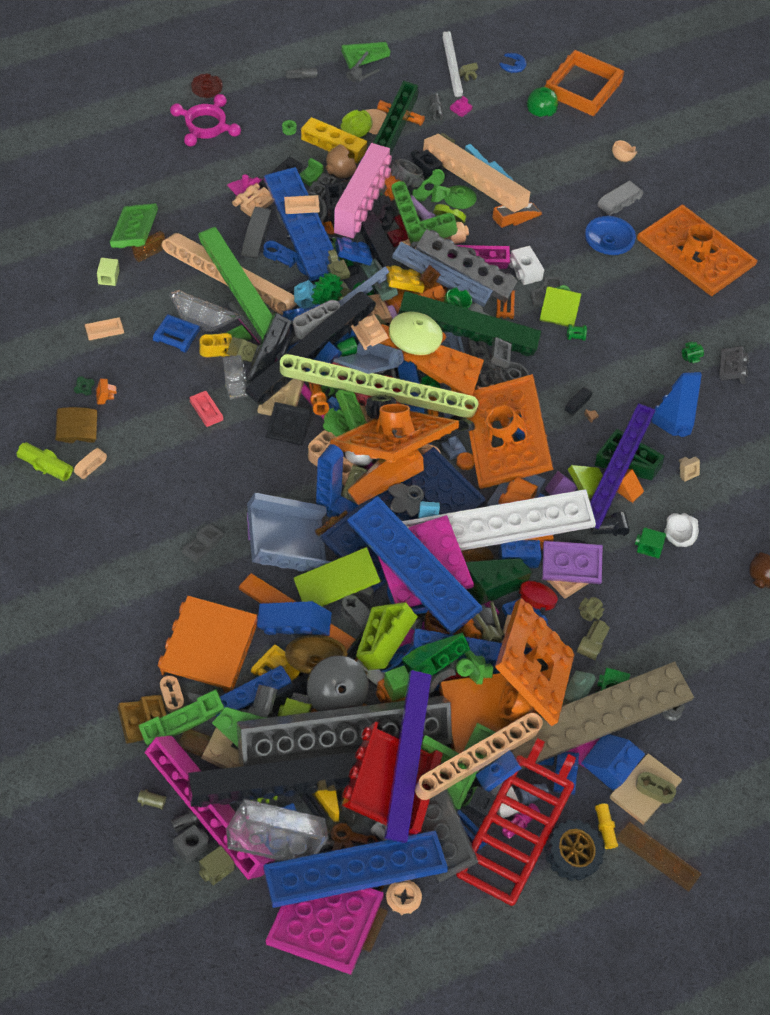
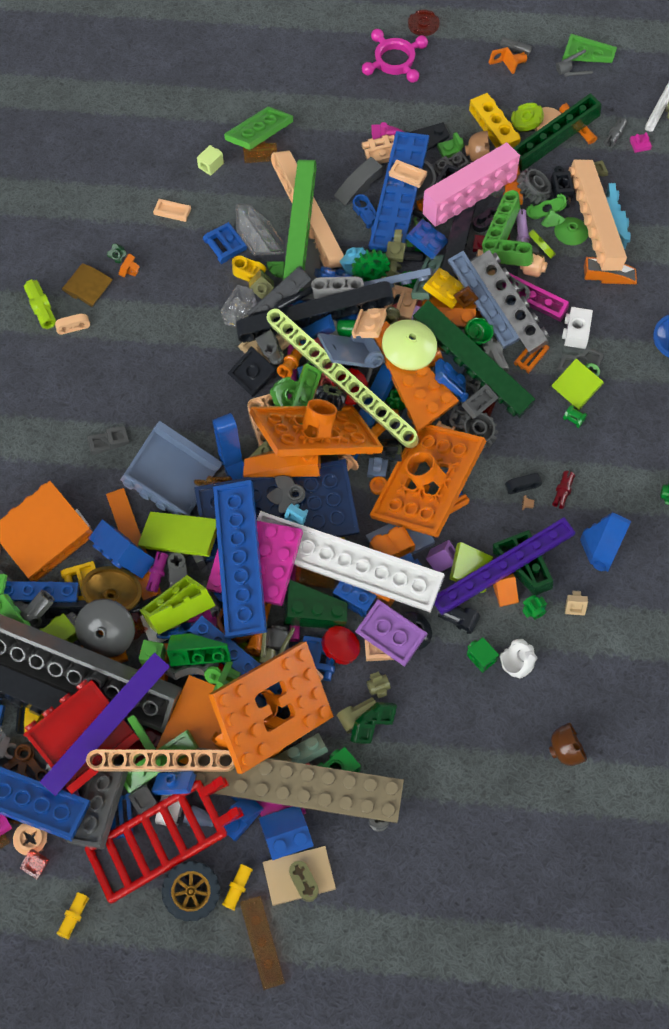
camera: 40 degrees right, 10 degrees up
(206, 408) = (197, 323): coral plate -> none
(289, 131) = (465, 90): bright green bush -> none
(293, 394) = (270, 347): none -> dark grey piece
(305, 85) = (508, 58): none -> orange bracket
(341, 621) = (157, 572): none -> magenta pin
(426, 914) = (34, 864): none -> clear red tile
(464, 347) = (451, 379): none -> blue plate
(492, 933) = (72, 915): none -> yellow pin
(520, 820) = (165, 836): dark pink axle -> none
(611, 390) = (563, 489): none -> dark red pin
(611, 629) = (377, 714): none -> dark green tile
(661, 486) = (534, 607): none -> green gear

